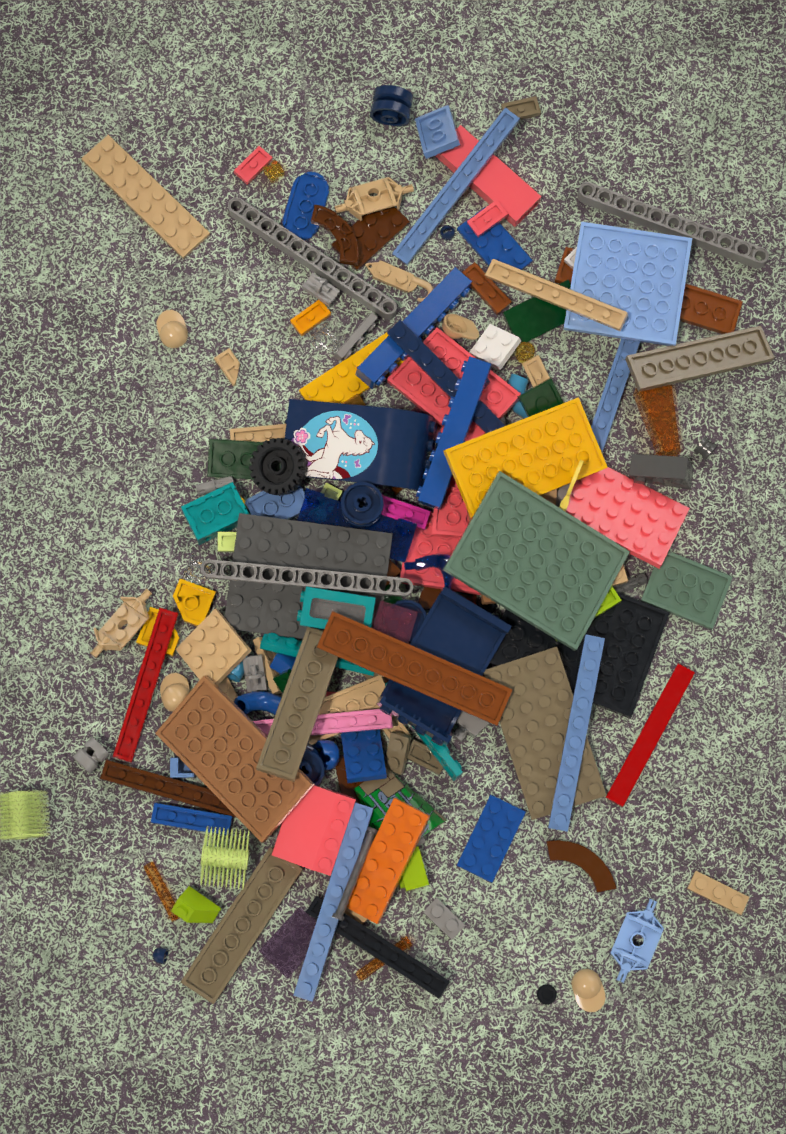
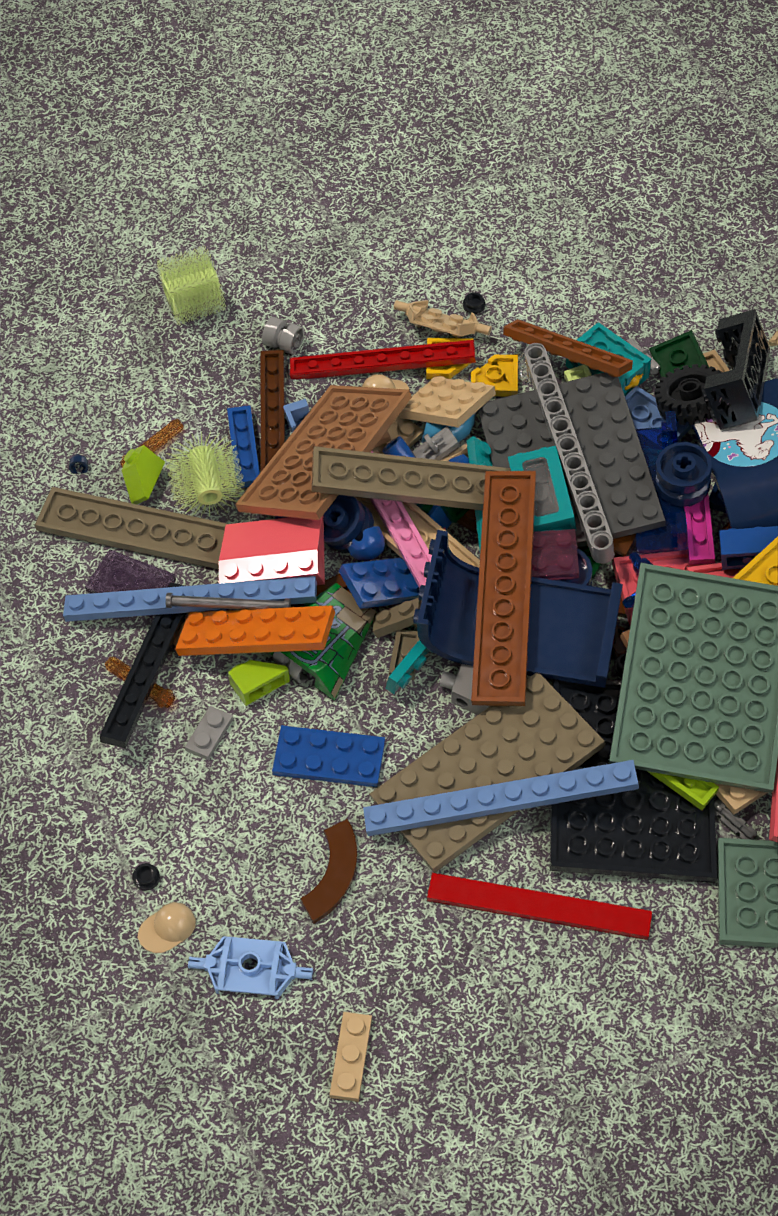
camera: 80 degrees right, 20 degrees down
(109, 592) = (474, 303): none -> black plate
(204, 541) = (569, 348): none -> dark orange plate
(313, 439) = (743, 385): none -> black plate

